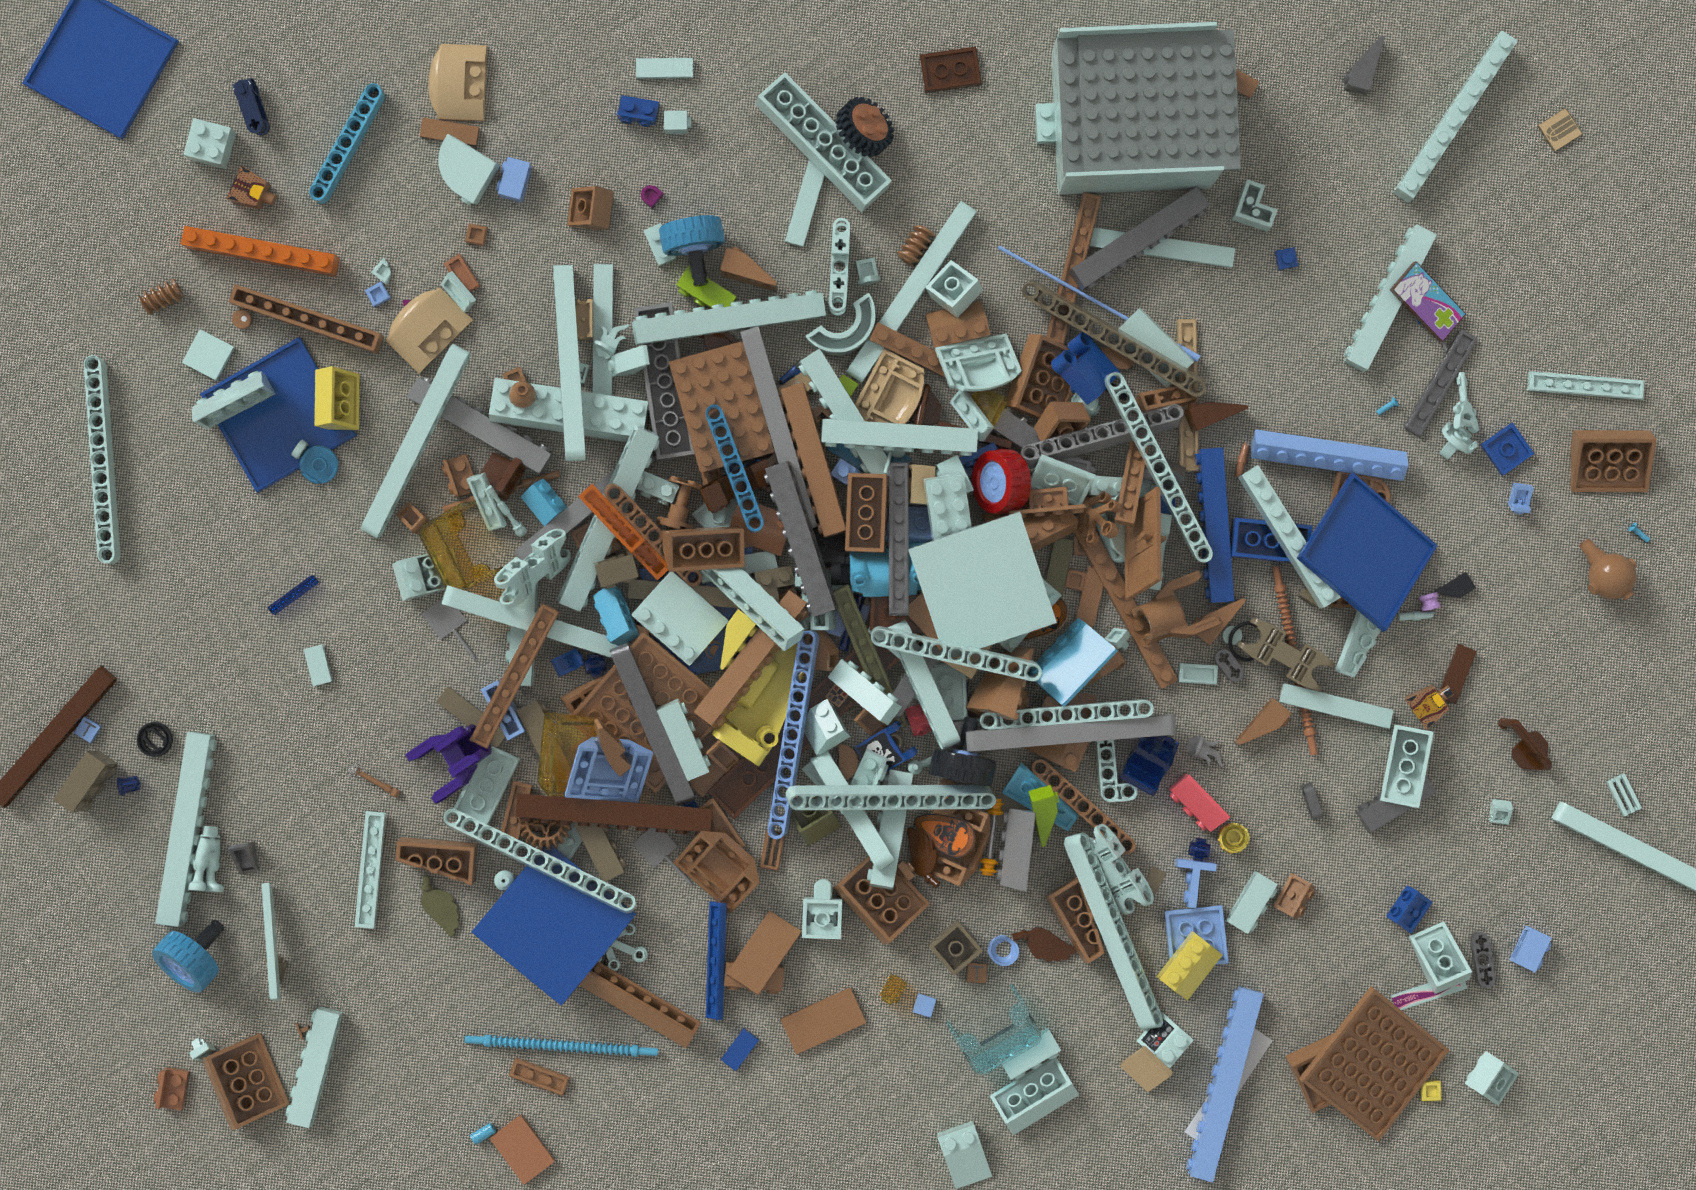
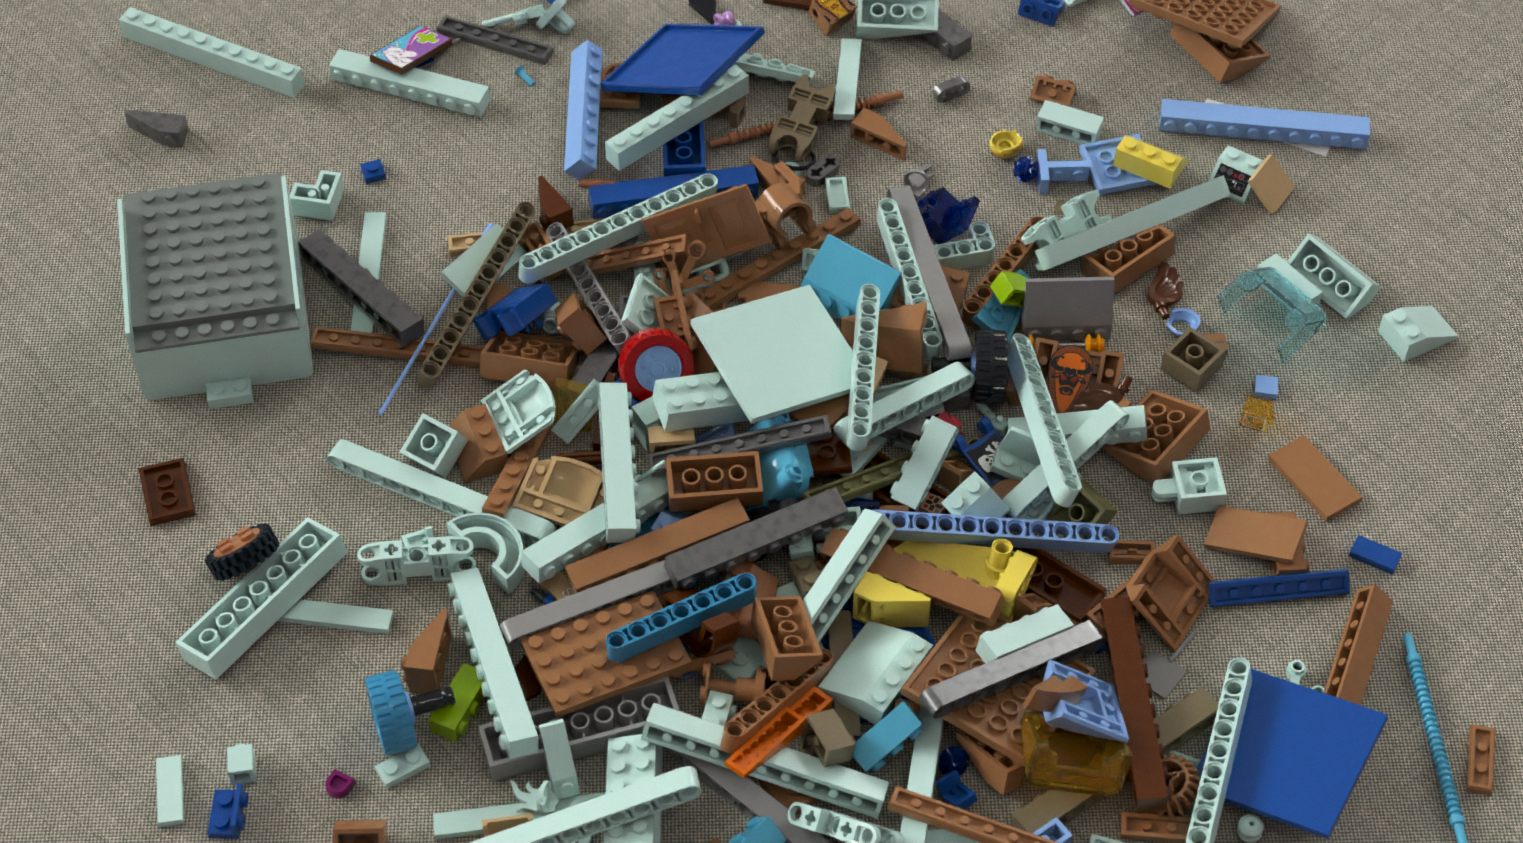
camera: 95 degrees left, 35 degrees down
(915, 245) = (384, 496): medium nougat piece -> none
(1198, 803) = (976, 169): coral slope -> none

